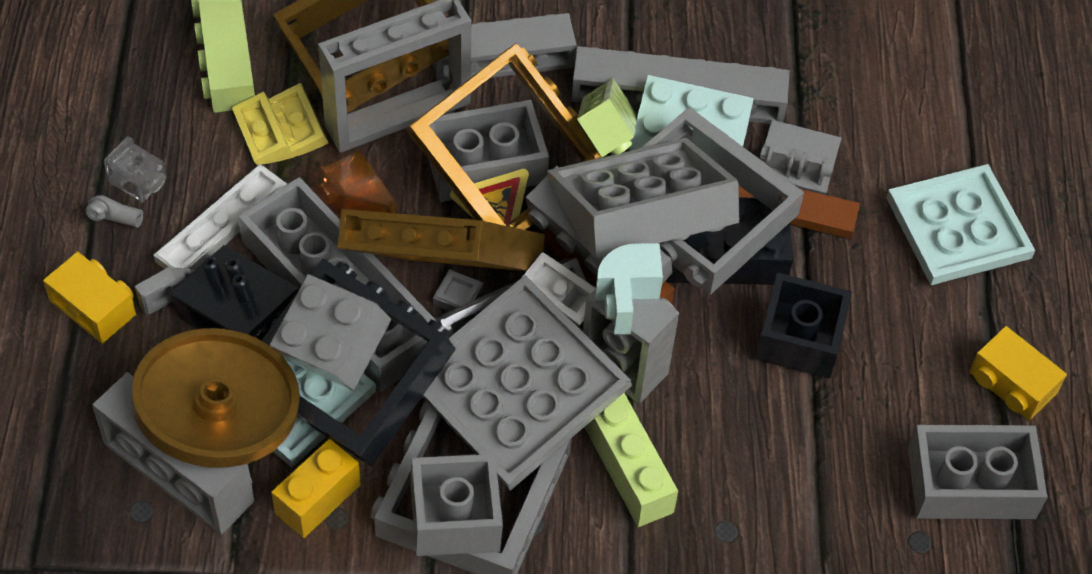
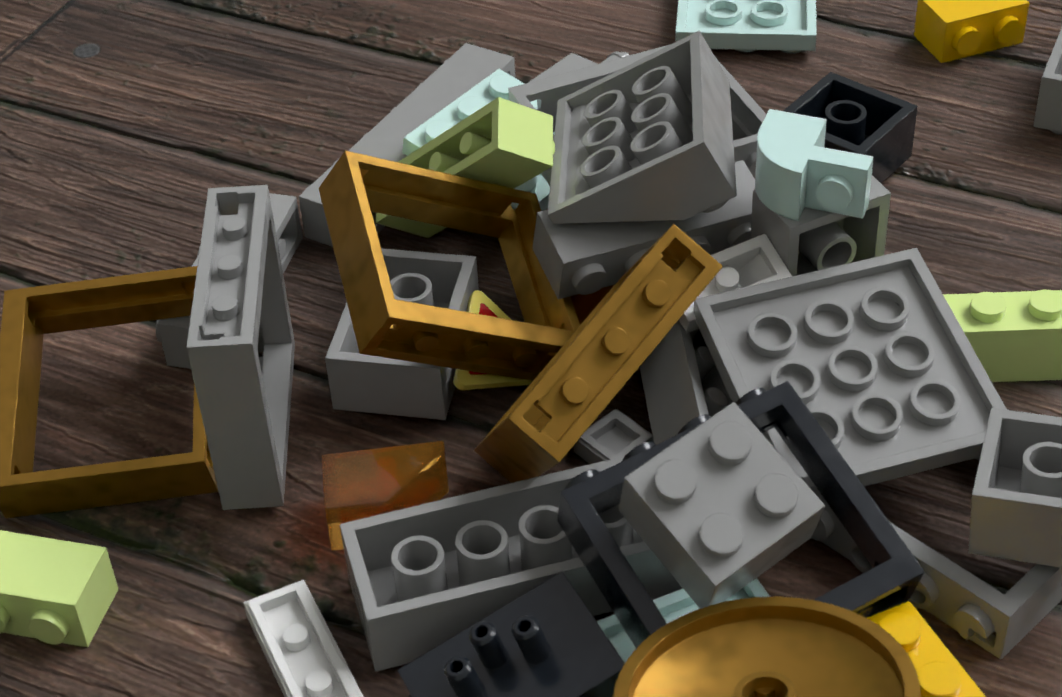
camera: 60 degrees left, 15 degrees down
(279, 125) = (181, 560): light yellow slope -> none

